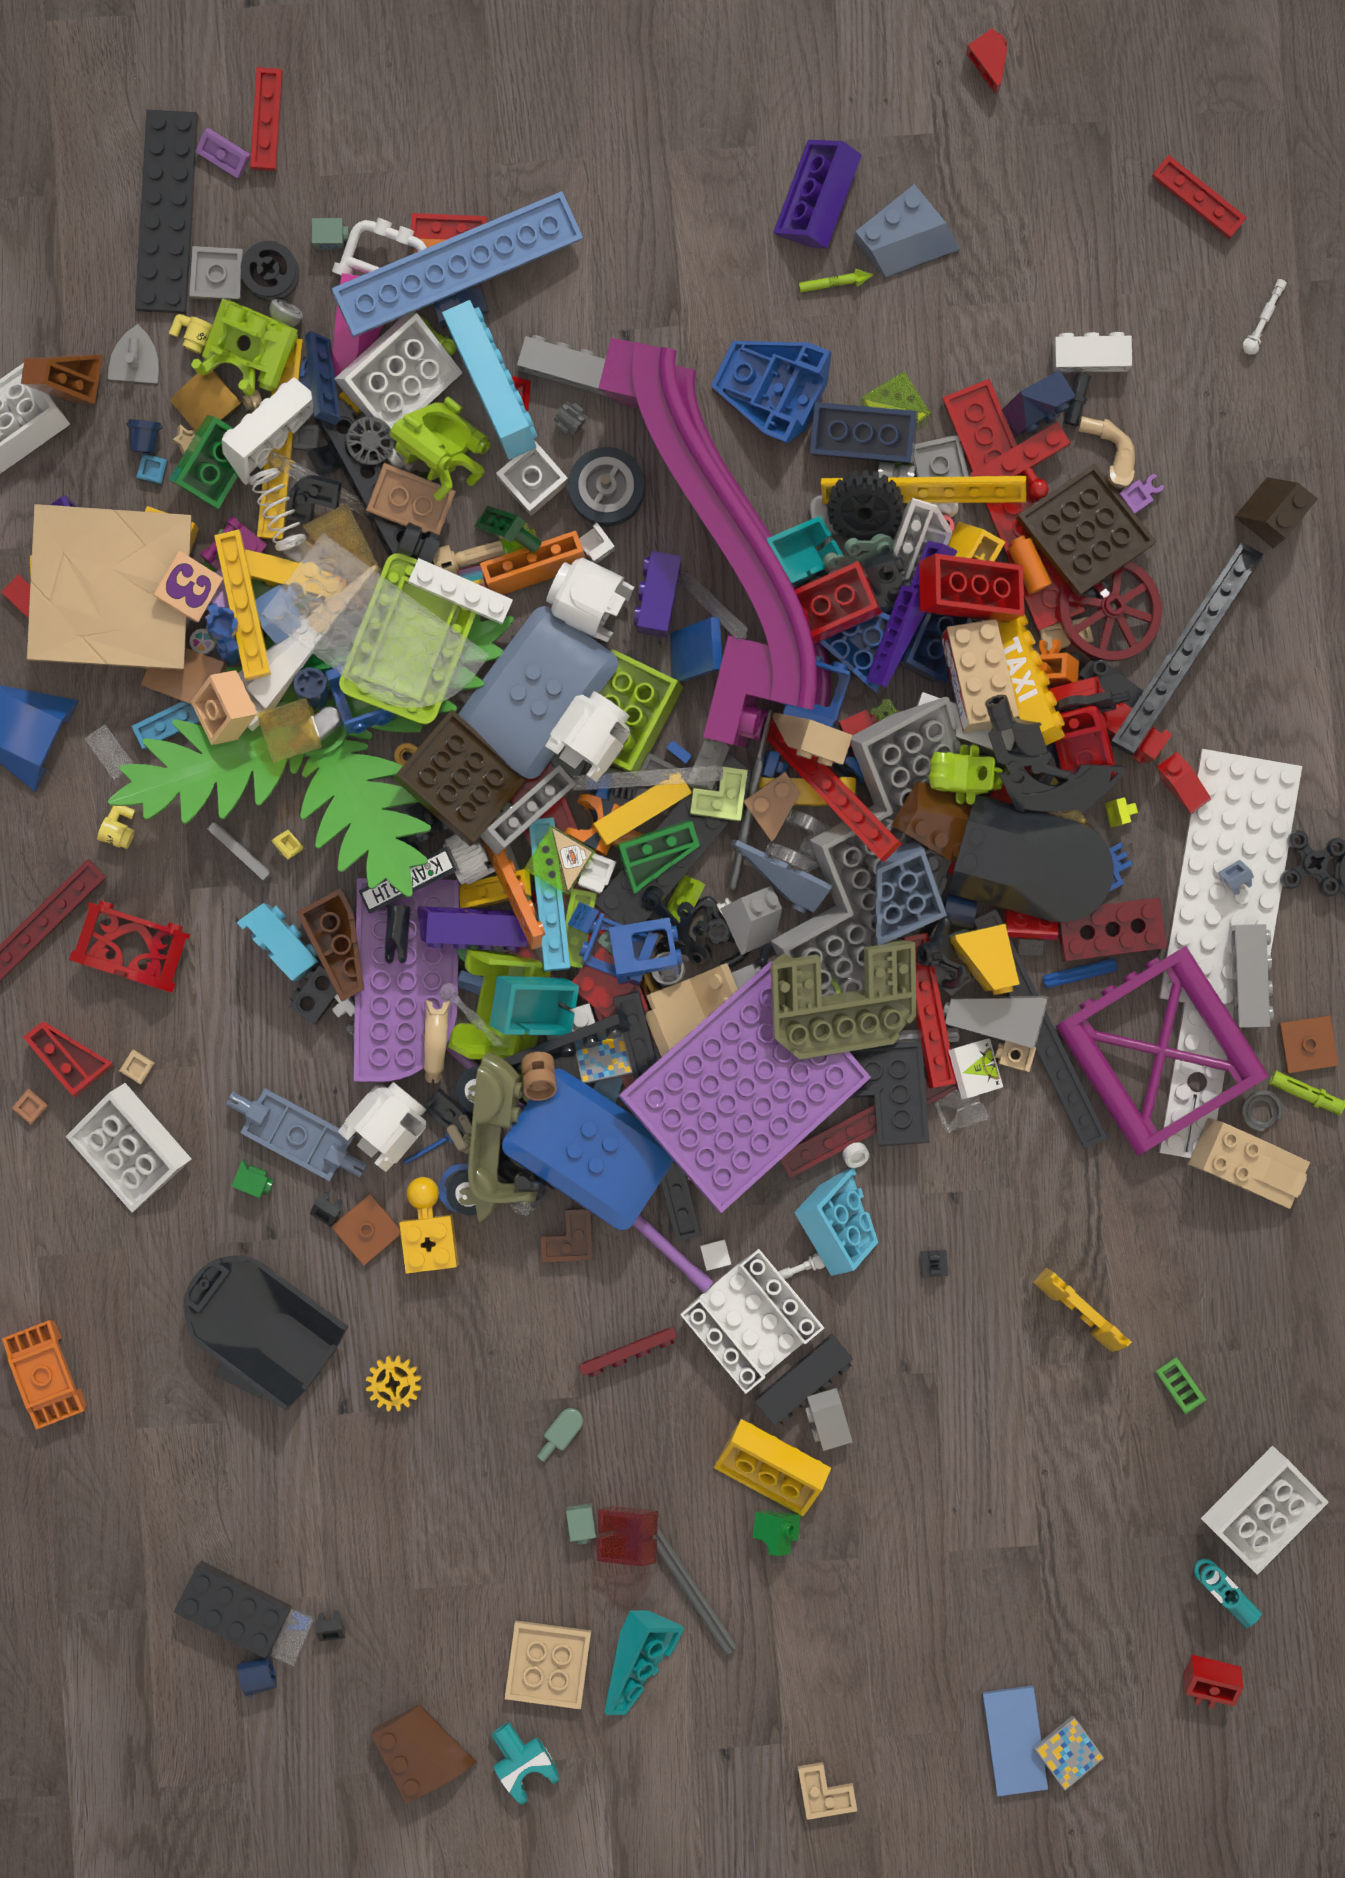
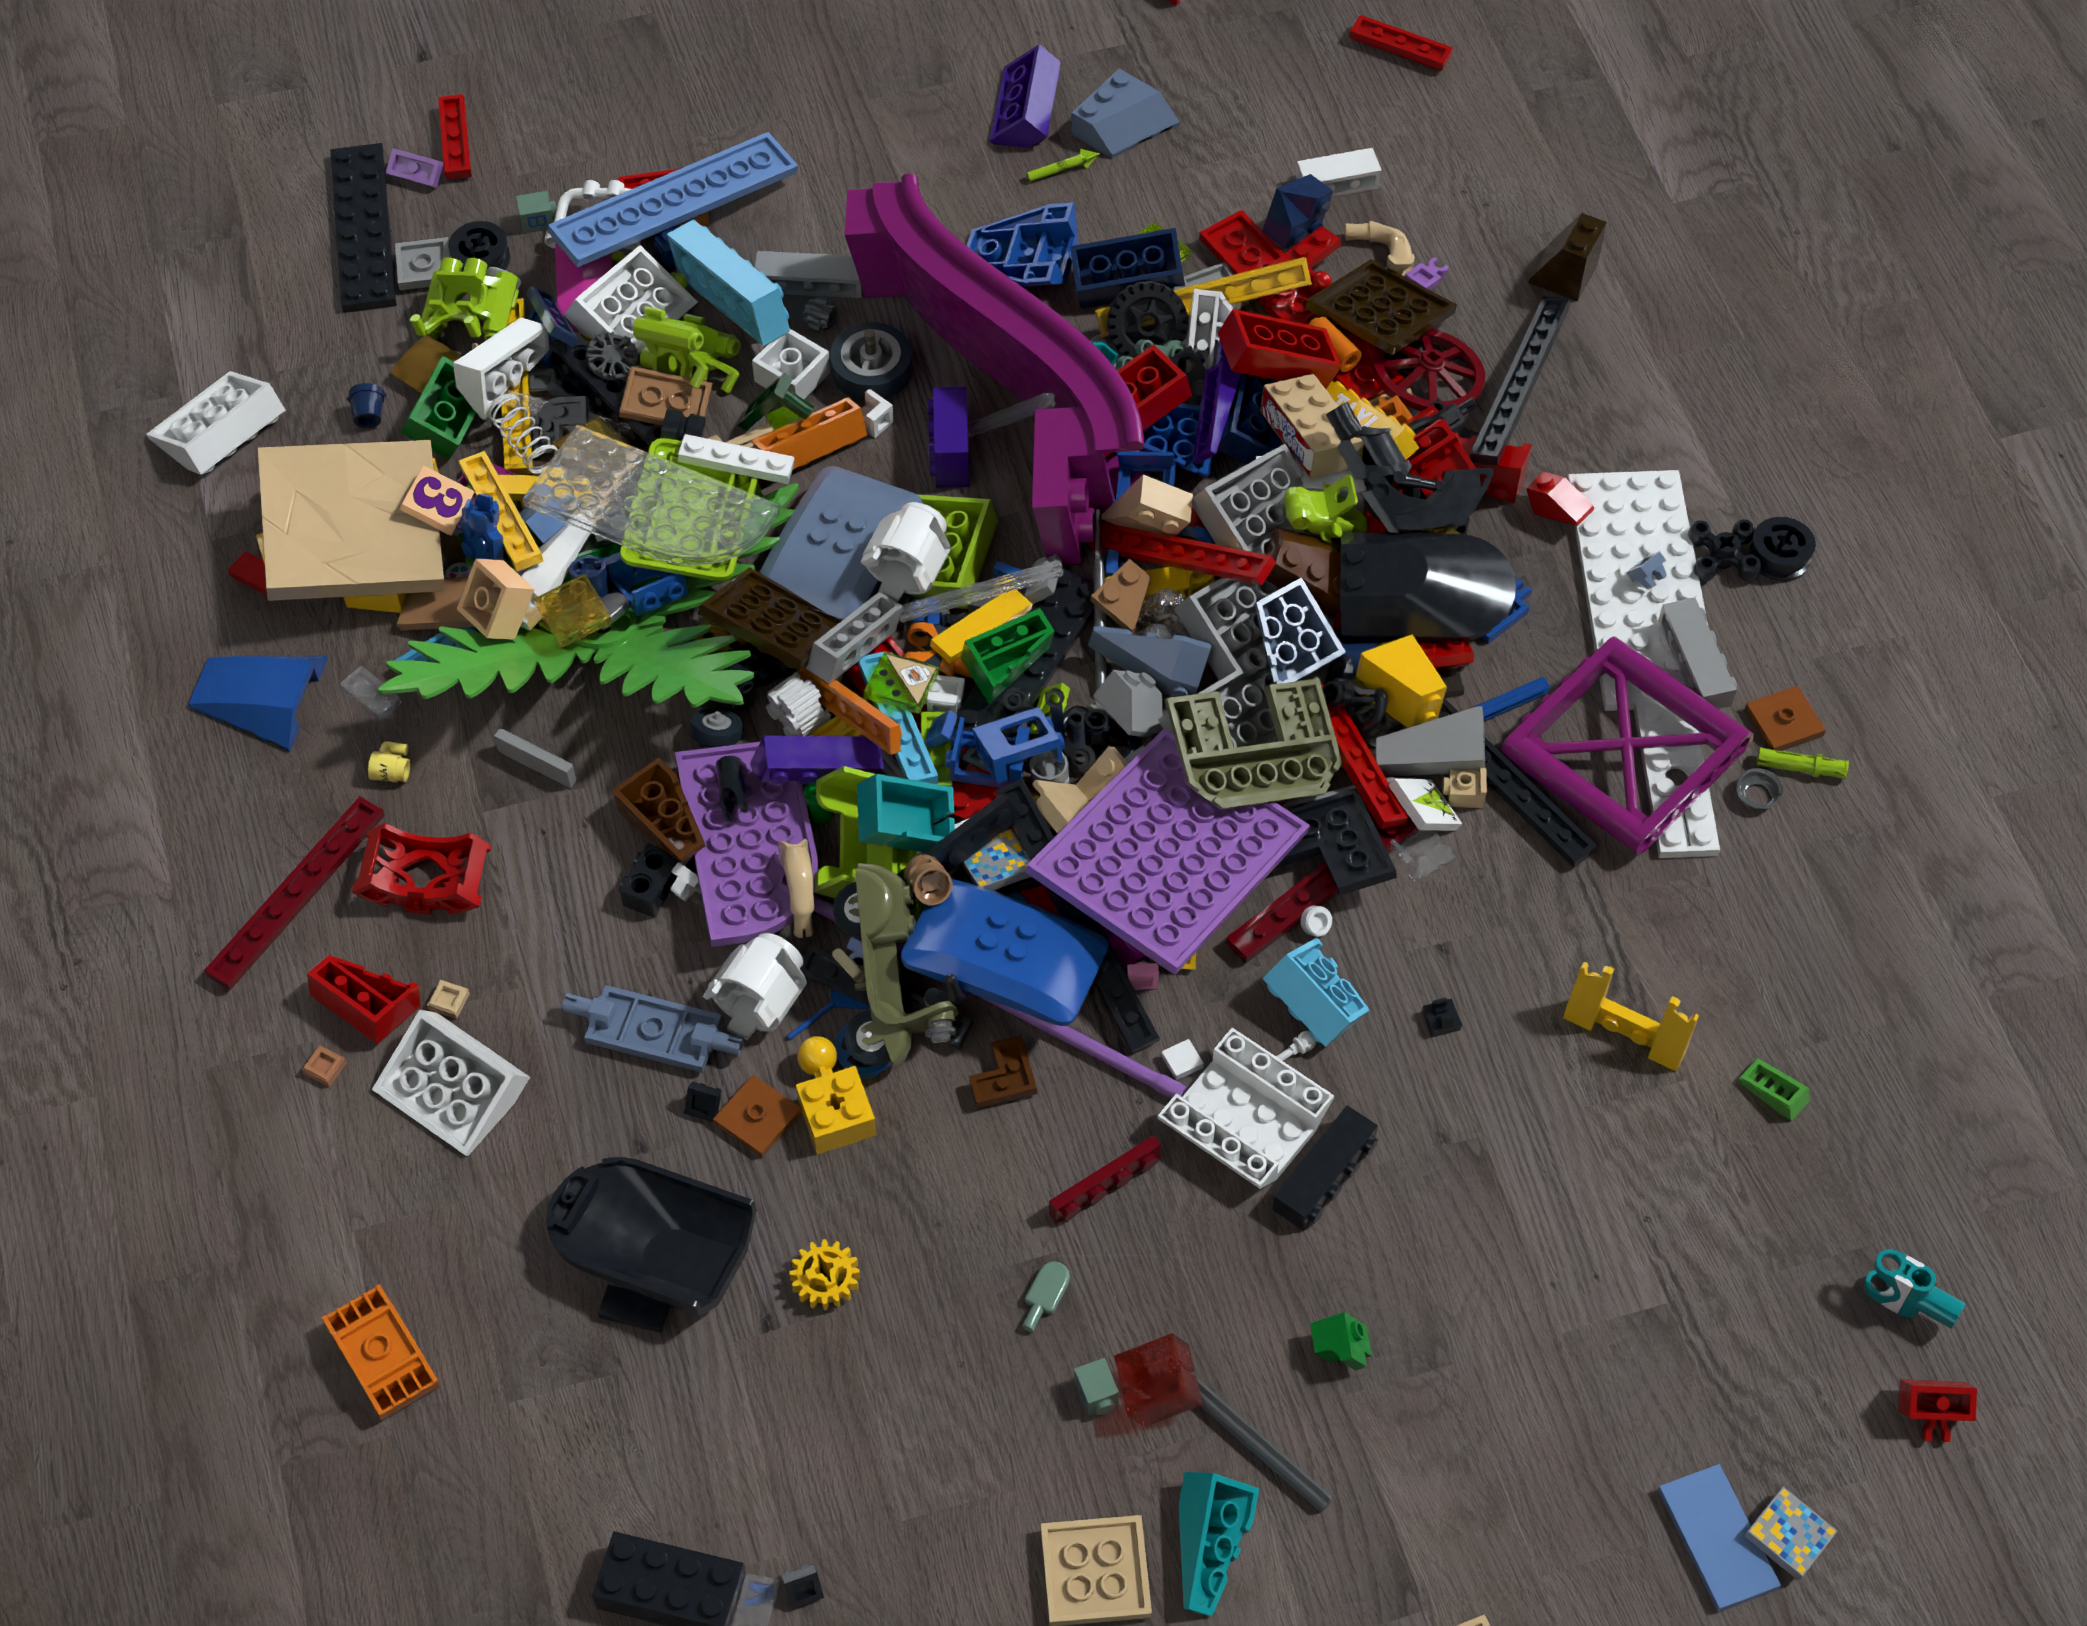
camera: 15 degrees left, 30 degrees down
(65, 377) = (273, 359): dark orange wedge -> none
(134, 358) = (347, 351): light grey shield -> none
(152, 469) = (380, 433): dark azure tile -> none
(183, 438) = (408, 401): tan piece -> none
(196, 333) = (409, 306): light yellow piece -> none
(252, 1180) = (608, 1086): green window -> none
(282, 940) = (593, 827): medium azure wedge -> none
(287, 845) = (587, 744): light yellow slope -> none
(439, 866) = (735, 731): tile -> none
(449, 993) = (838, 858): clear piece -> none
(470, 982) = (826, 832): medium blue tile -> none
(587, 595) = (875, 445): white piece -> none
(696, 650) = (1004, 460): blue tile -> none
(726, 802) = (1072, 601): yellowish green plate -> none
(772, 1467) = (1315, 1274): yellow slope -> none
(829, 1419) = (1370, 1198): light grey brick -> none
(1076, 404) = (1336, 213): black pin -> none
(1119, 812) = (1503, 539): neon yellow tile -> none
(1124, 941) = (1531, 648): dark red brick -> none
(1249, 1163) = (1764, 833): tan piece -> none
(1252, 342) = (1495, 140): white piece -> none
(1265, 1510) = (1924, 1197): white slope -> none

